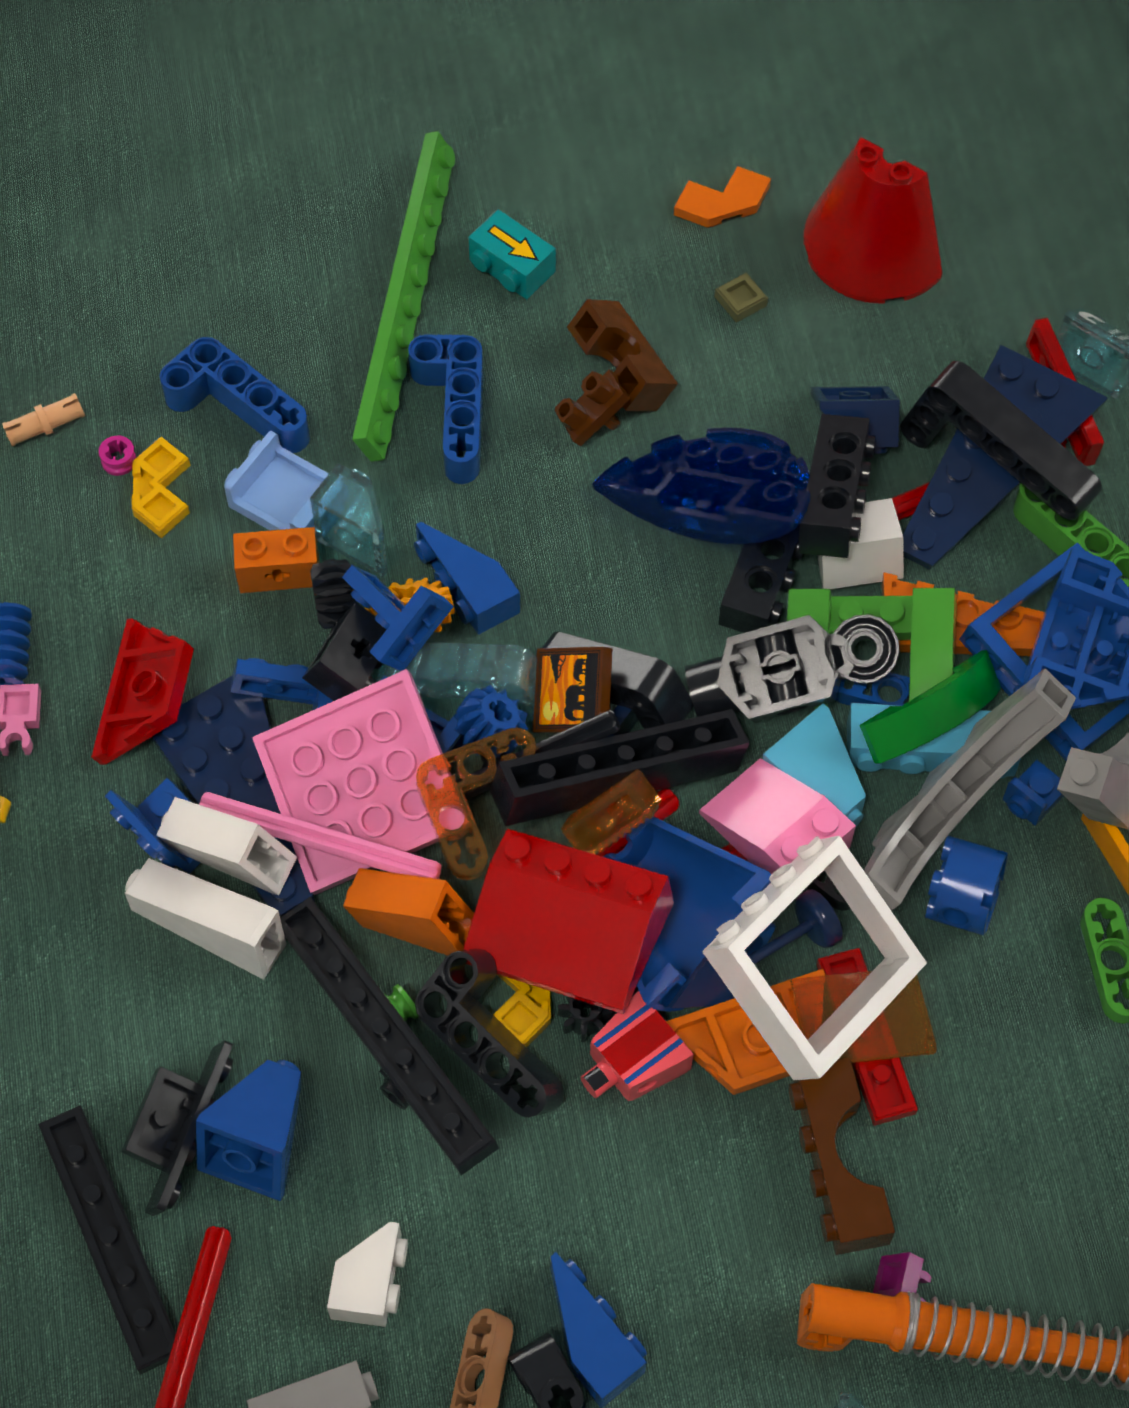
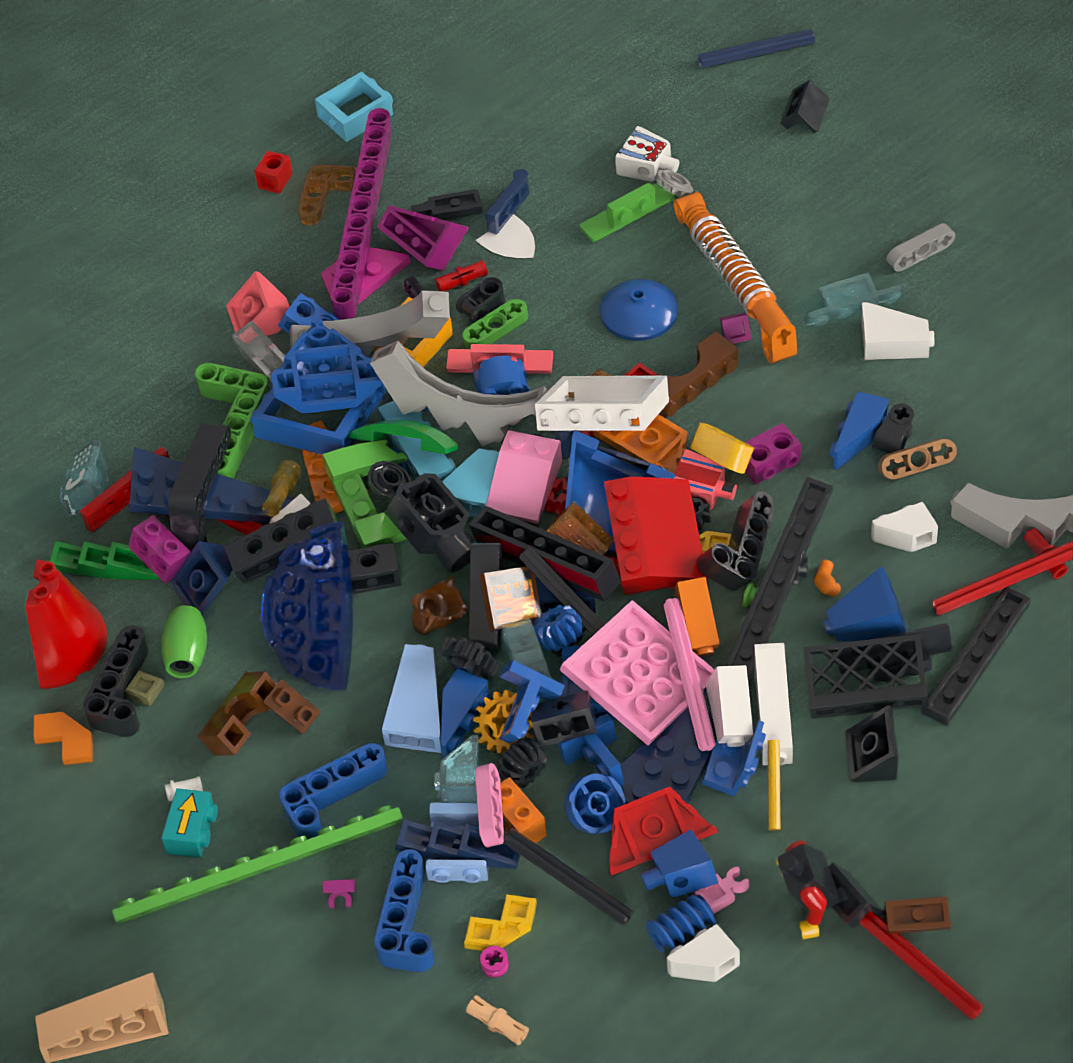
camera: 115 degrees left, 10 degrees down
(64, 1004) = (873, 748): none -> black slope
(70, 684) = (680, 866): none -> blue torso
(98, 848) = (774, 785): none -> yellow bar
(128, 1037) = (871, 699): none -> black fence
(151, 565) = (568, 876): none -> black axle
(220, 632) = (591, 803): none -> blue cylinder
(278, 481) = (453, 843): none -> dark blue slope
(306, 518) = (489, 805): none -> bright pink beam
(318, 88) = (103, 1020): none -> light nougat wedge
(319, 352) = (340, 887): none -> magenta tile
(368, 1115) = (824, 580): none -> orange arm
(452, 795) = (616, 614): clear orange beam -> none
(521, 540) = (414, 704): none -> light blue slope
(523, 608) = (469, 657): none -> black gear
(567, 264) = (191, 784): none -> white pin
(633, 1176) = (772, 453): none -> magenta brick
(636, 622) = (437, 606): none -> reddish brown hair
(677, 1112) = (722, 447): none -> yellow beam
(740, 243) = (108, 688): none -> black beam
(769, 345) = (183, 641): none -> bright green piece
(916, 369) = (158, 548): none -> magenta brick
(957, 551) = (283, 483): none -> clear yellow pin
(962, 328) = (101, 561): none -> green slope
(1016, 1200) = (639, 309): none -> blue dish
(1032, 926) = (468, 359): none -> coral bracket

